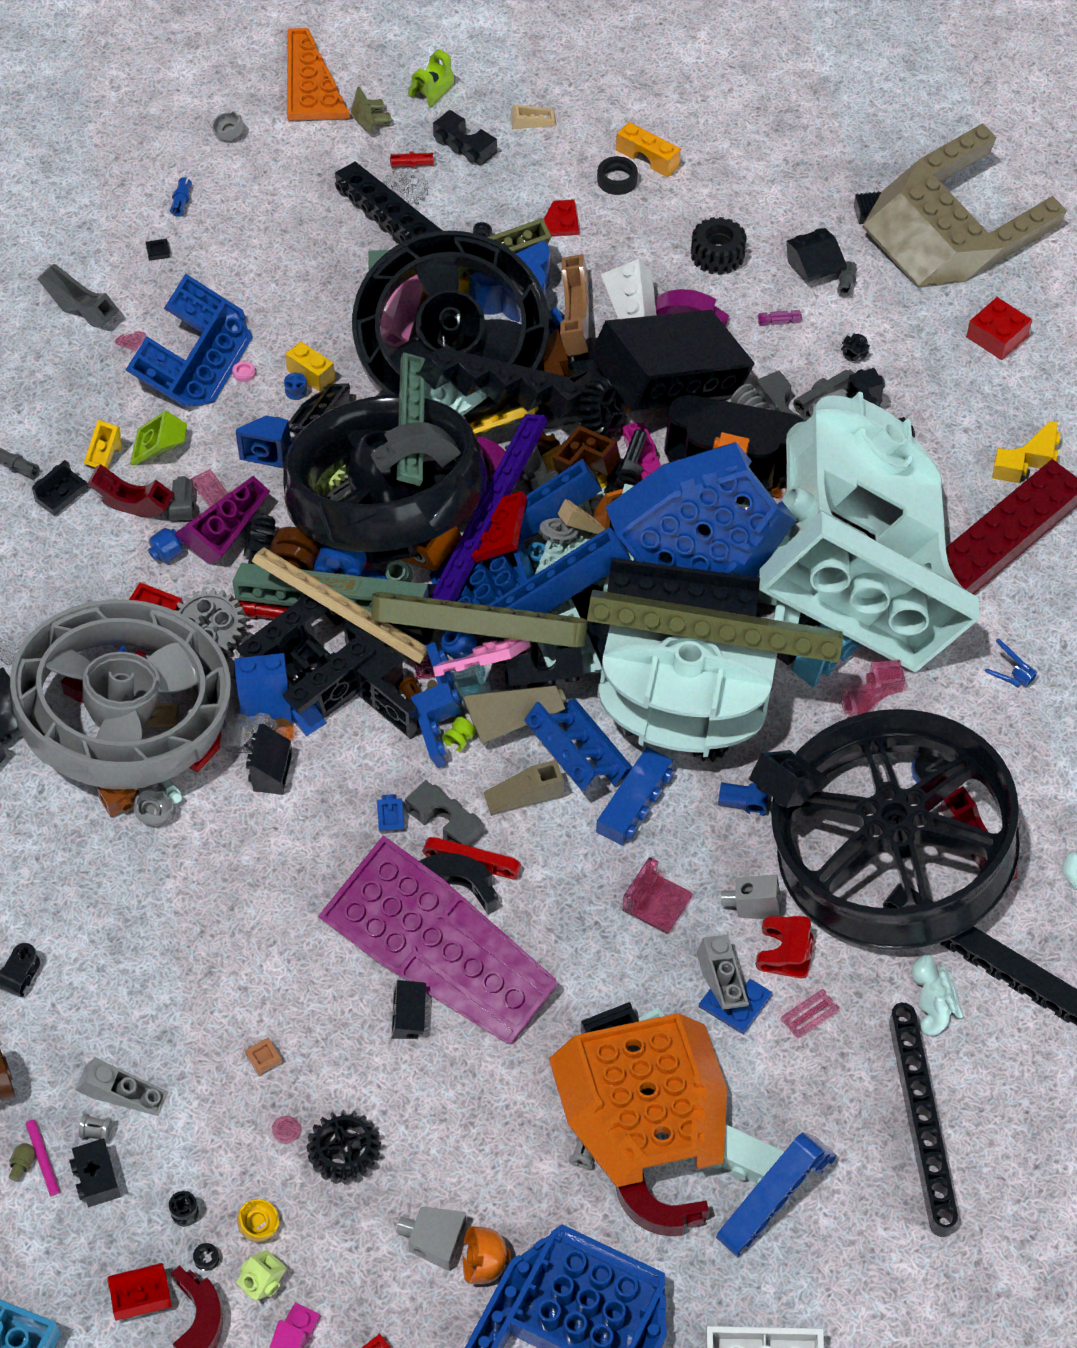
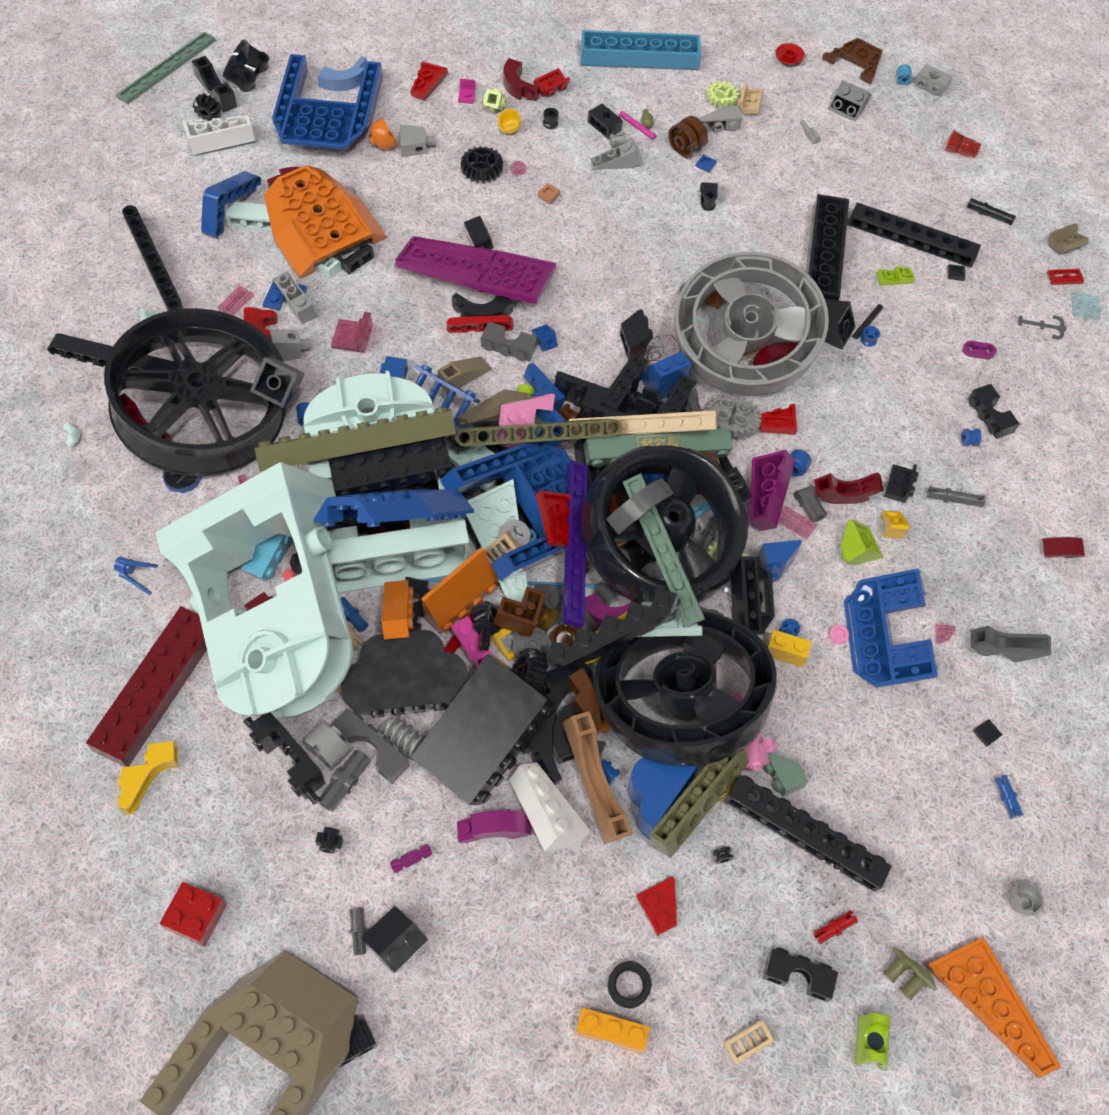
camera: 155 degrees right, 5 degrees up
(197, 1256) = (528, 103): black bush -> none
(706, 248) = (502, 936): black tyre -> none

